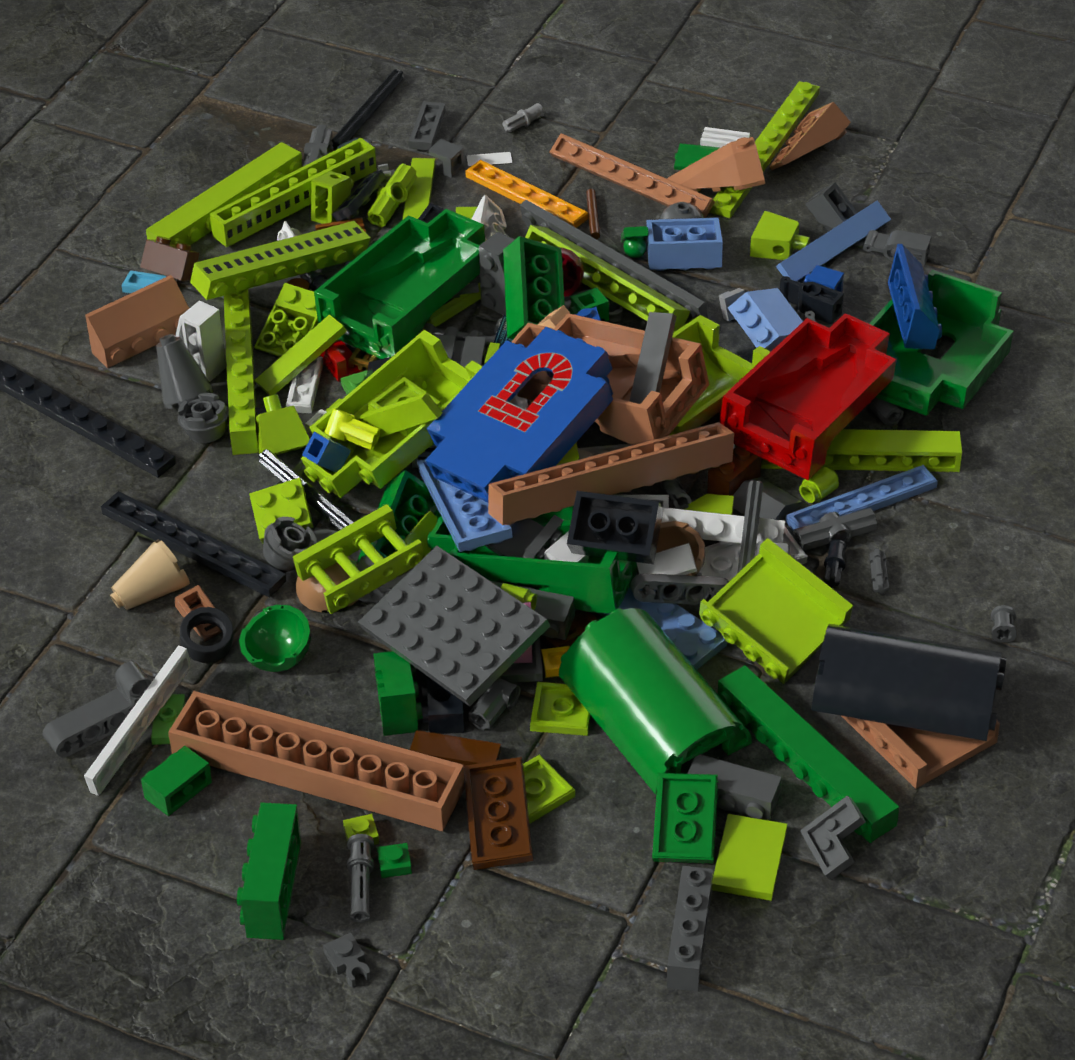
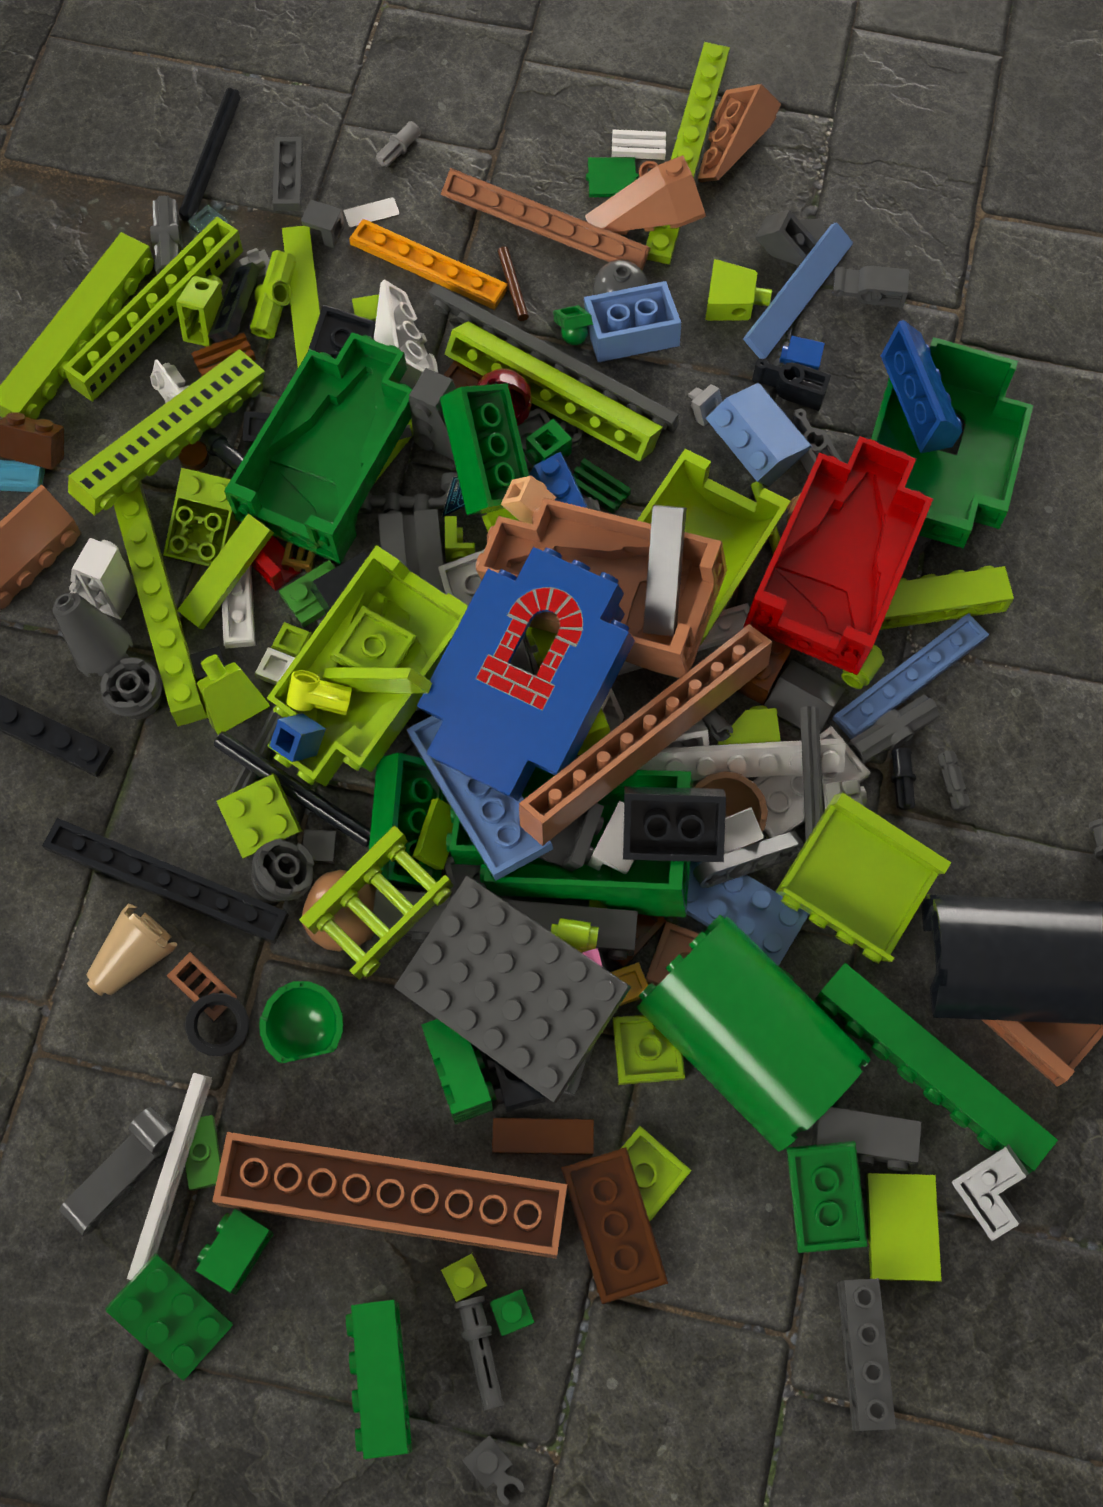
camera: 15 degrees left, 25 degrees up
(110, 809) = (169, 1316): none -> green plate

